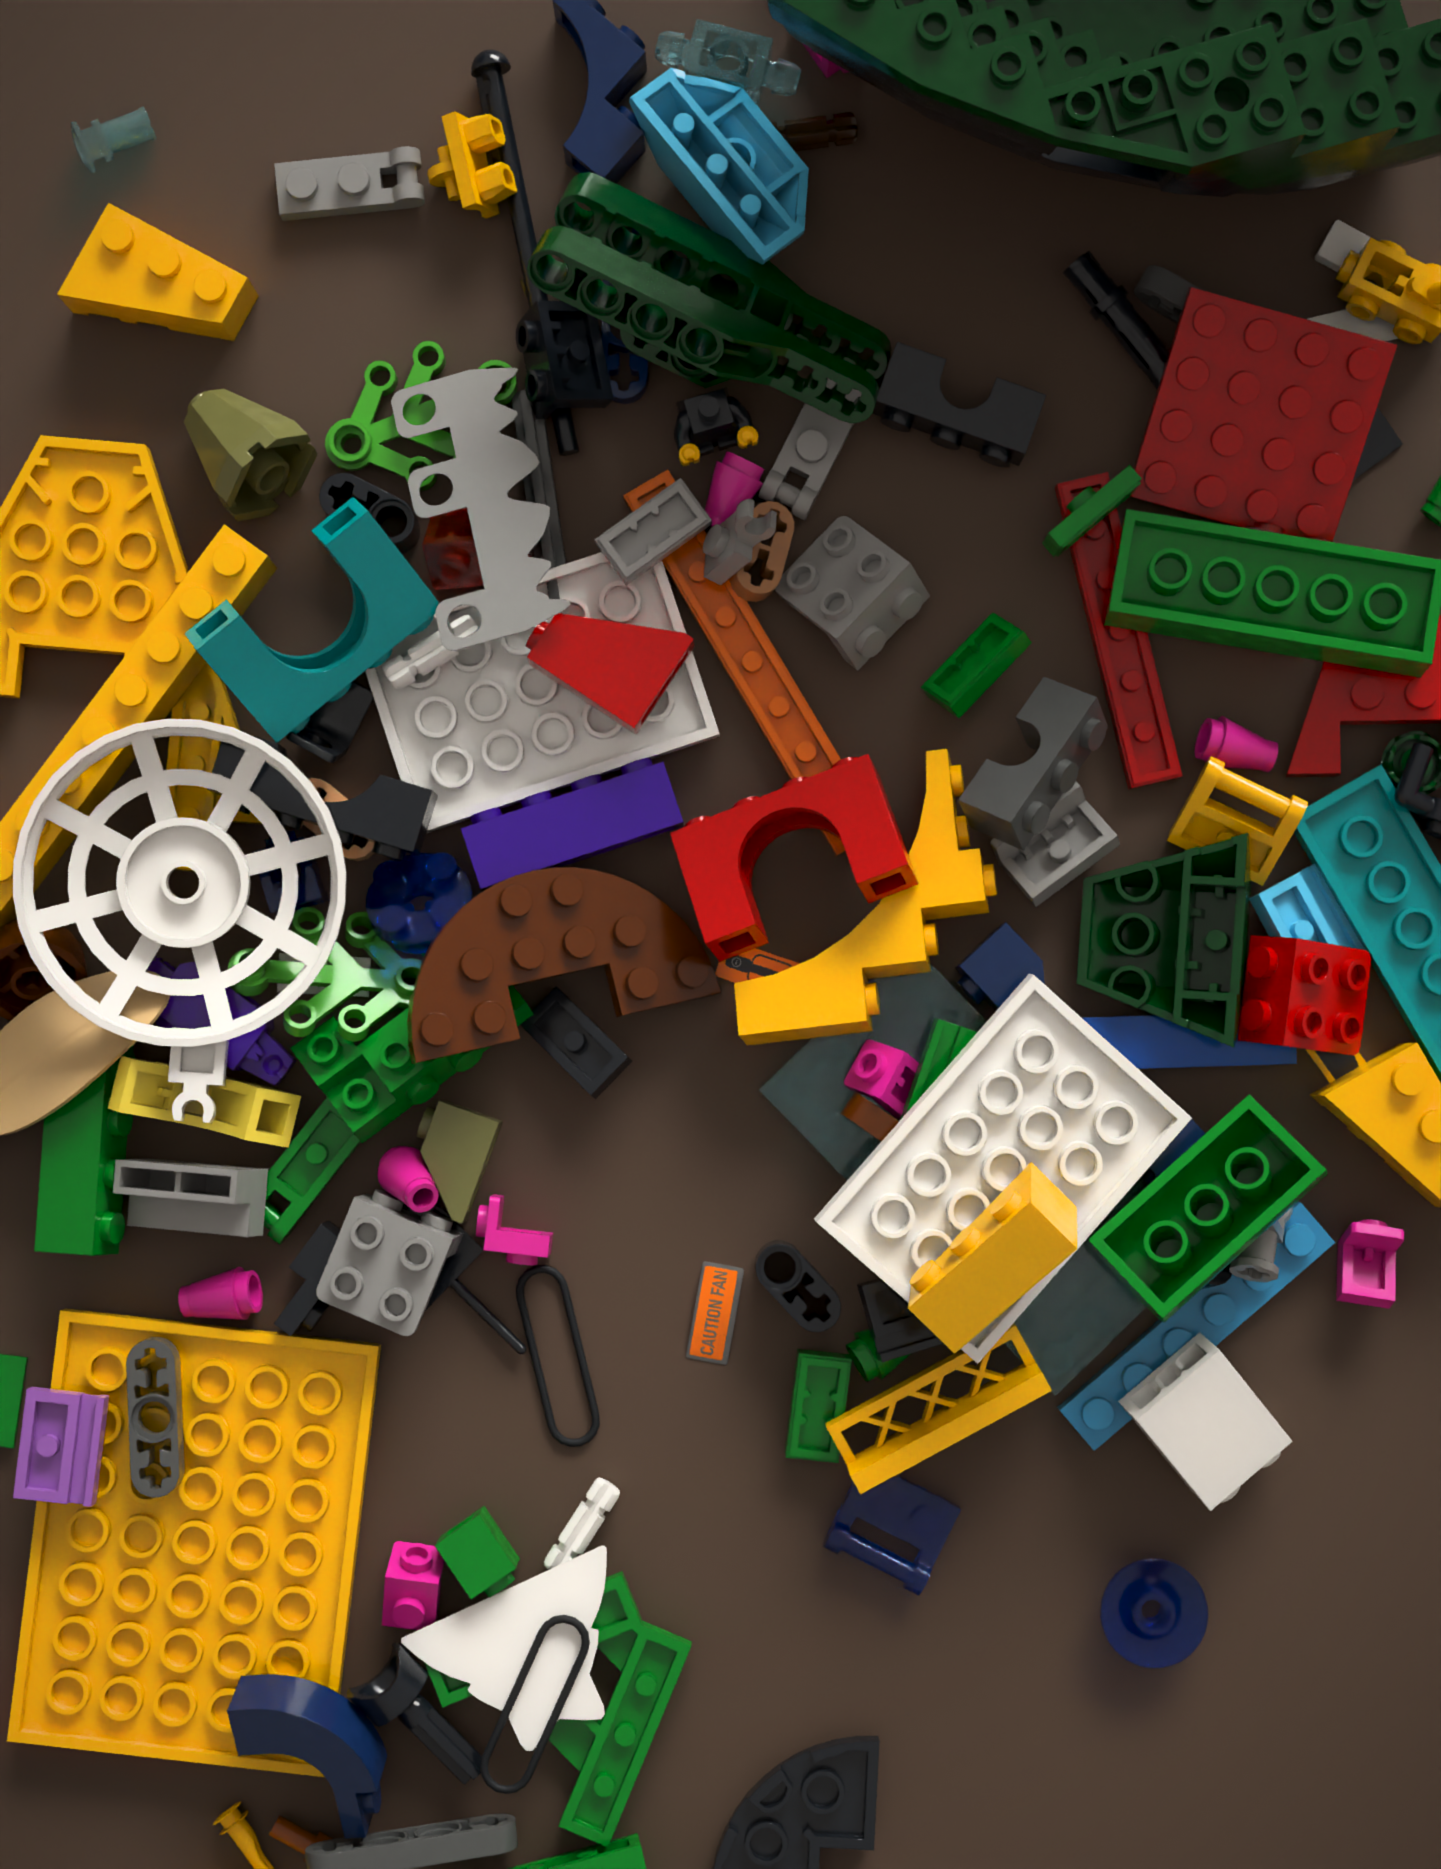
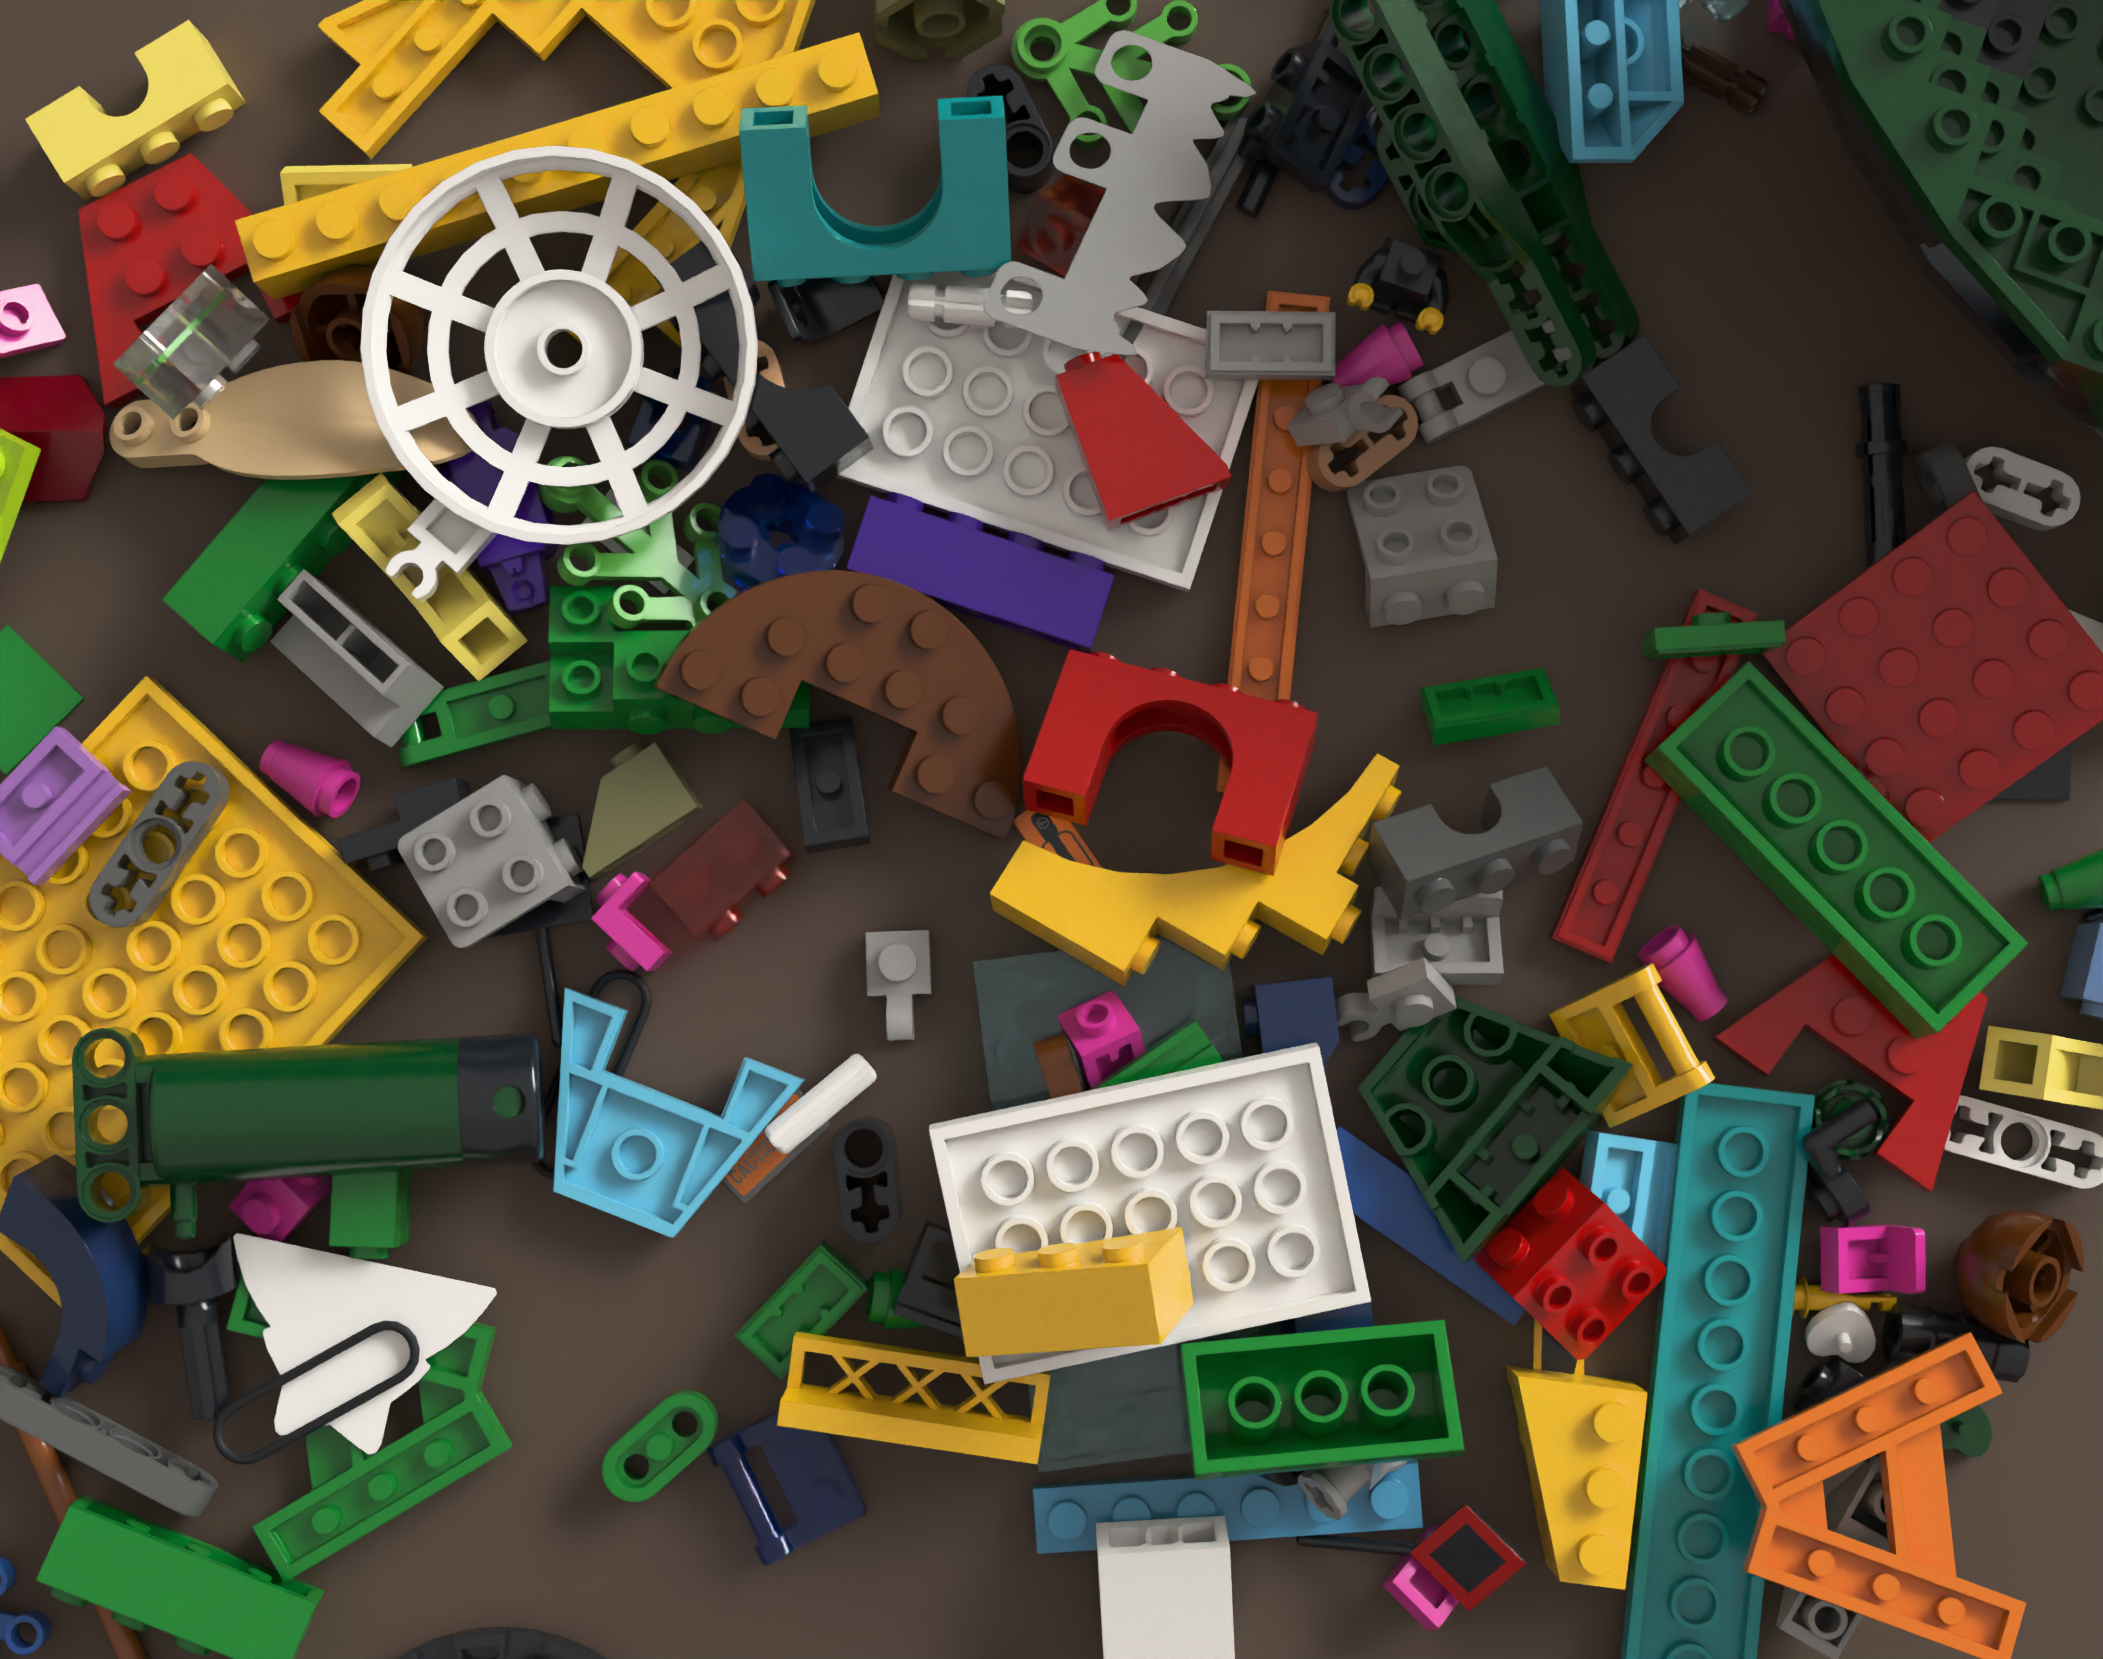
camera: 40 degrees right, 0 degrees up
(389, 1523) = (302, 1113): none -> dark green piece
(407, 1178) = (570, 795): dark pink cone -> none
(547, 1153) = (724, 872): none -> clear red bracket
(583, 1523) = (493, 1254): white axle -> none
(627, 1379) = (639, 1147): none -> medium azure wing
(713, 1131) = (898, 969): none -> light grey plate
(728, 1259) = (820, 1103): none -> white axle
(790, 1566) = (662, 1445): none -> green plate
(1060, 902) = (1400, 997): none -> light grey plate
(1216, 249) = (2029, 476): none -> white beam
(1373, 1240) = (1459, 1553): none -> piece

